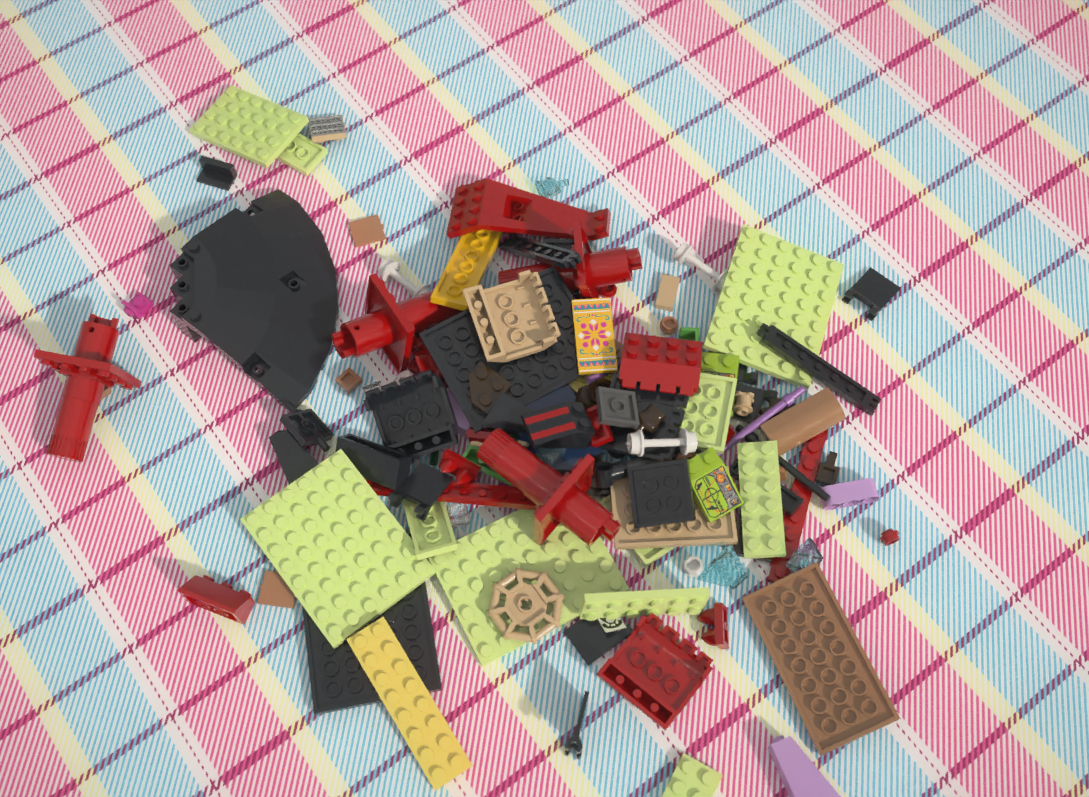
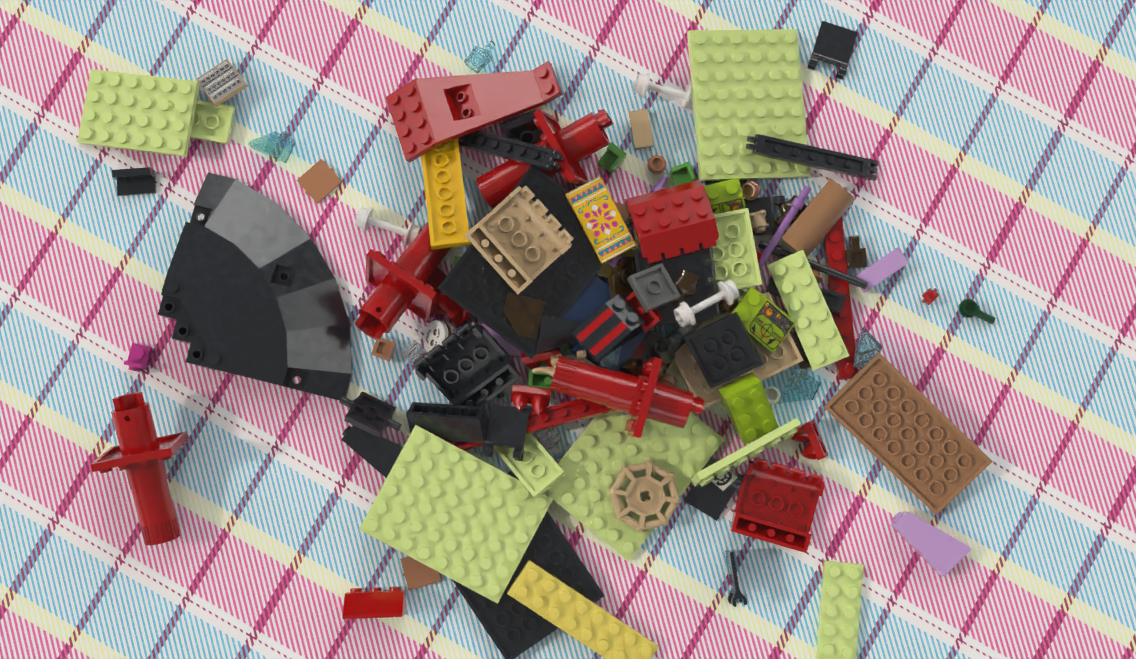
camera: 30 degrees left, 20 degrees up
(343, 188) = (274, 145): none -> clear light blue slope
(632, 305) = (612, 158): none -> bright green panel
(664, 559) = (748, 408): none -> lime brick
(747, 374) = (750, 190): none -> nougat plate
(927, 566) = (969, 308): none -> dark green plate

